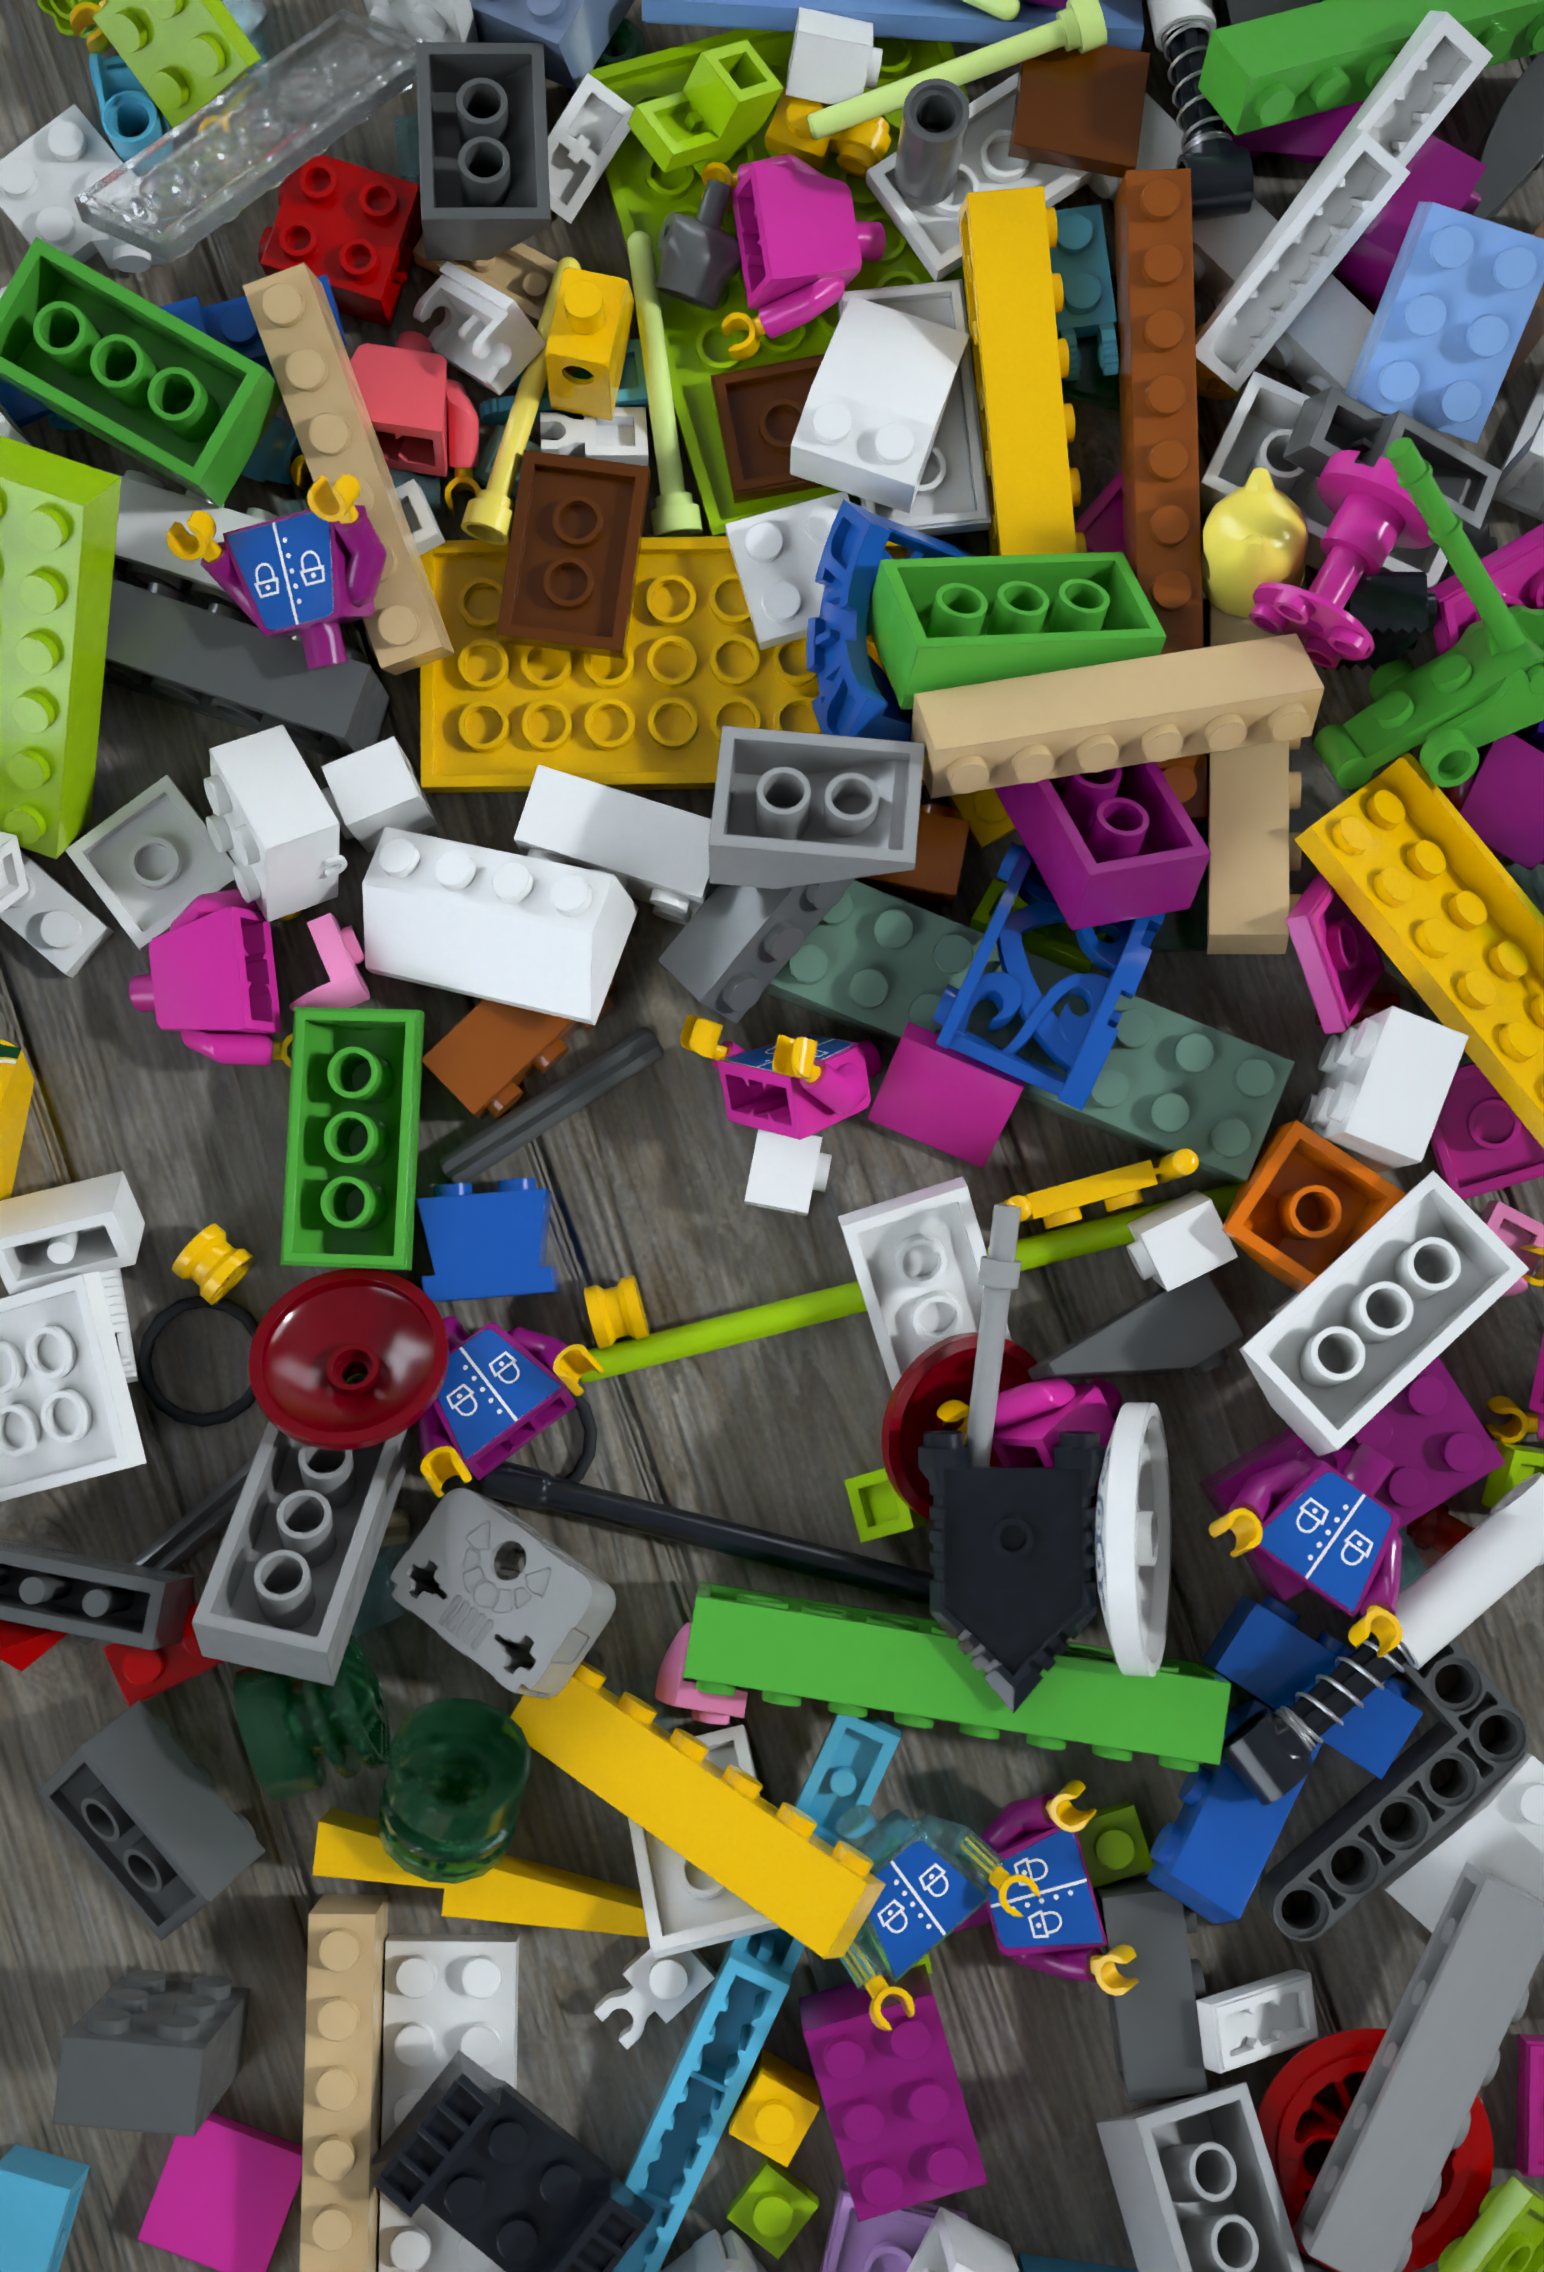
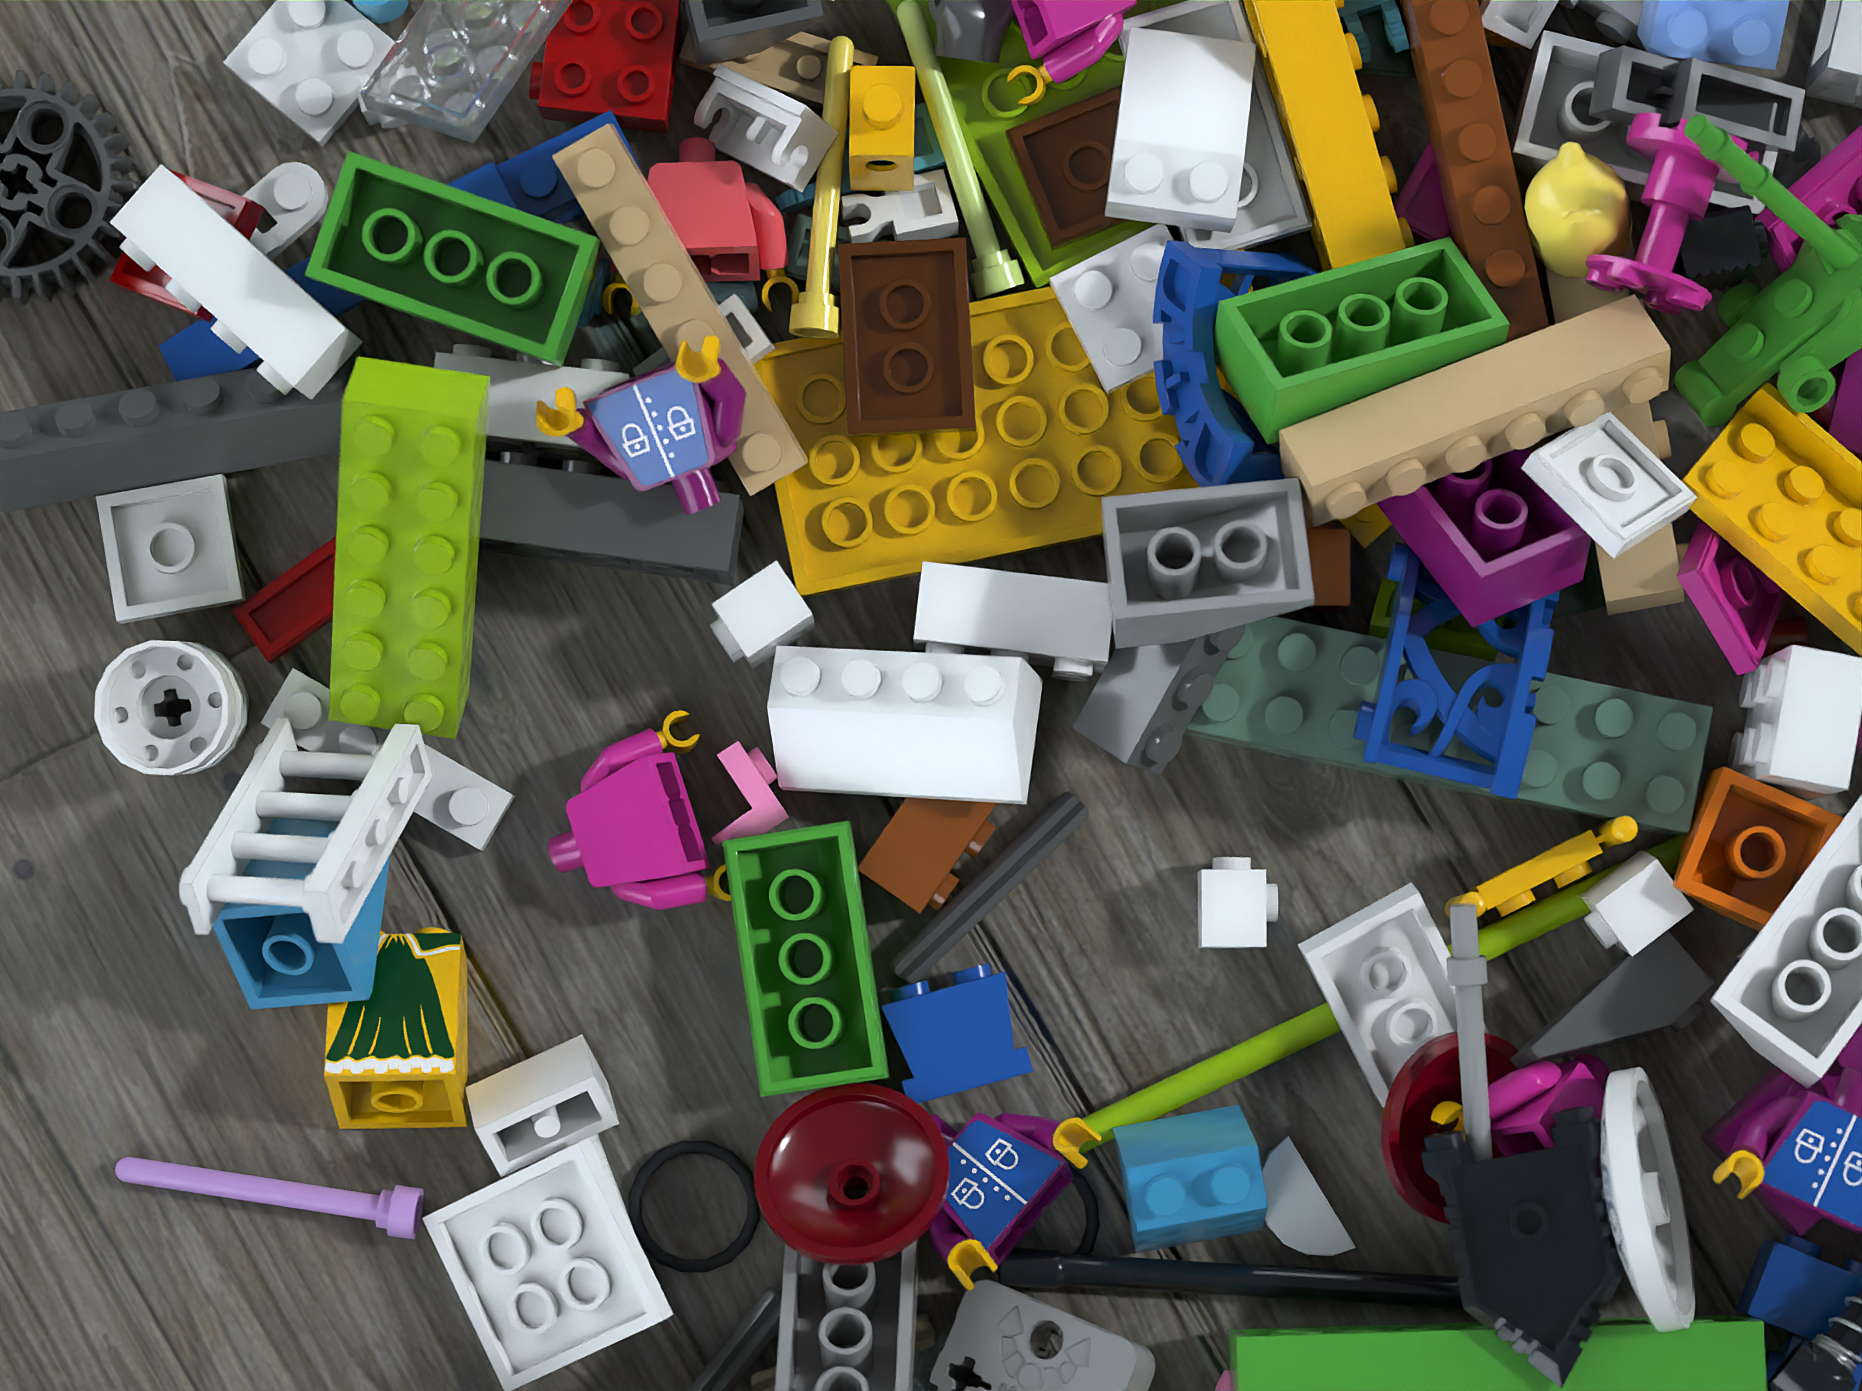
camera: 10 degrees left, 0 degrees up
(152, 861) = (547, 722): white plate -> none
(213, 1263) = (688, 1108): yellow wheel -> none
(273, 823) = (669, 665): white brick -> none
(616, 1312) = (1095, 1079): yellow wheel -> none
(684, 1426) = (1190, 1178): none -> dark azure slope
(789, 1084) = (1223, 824): dark pink torso -> none
(790, 1475) = (1298, 1207): none -> white tile
(878, 1508) = (1391, 1221): lime plate -> none
(944, 1097) = (1377, 808): dark pink tile -> none
(1235, 813) = (1609, 483): none -> white tile

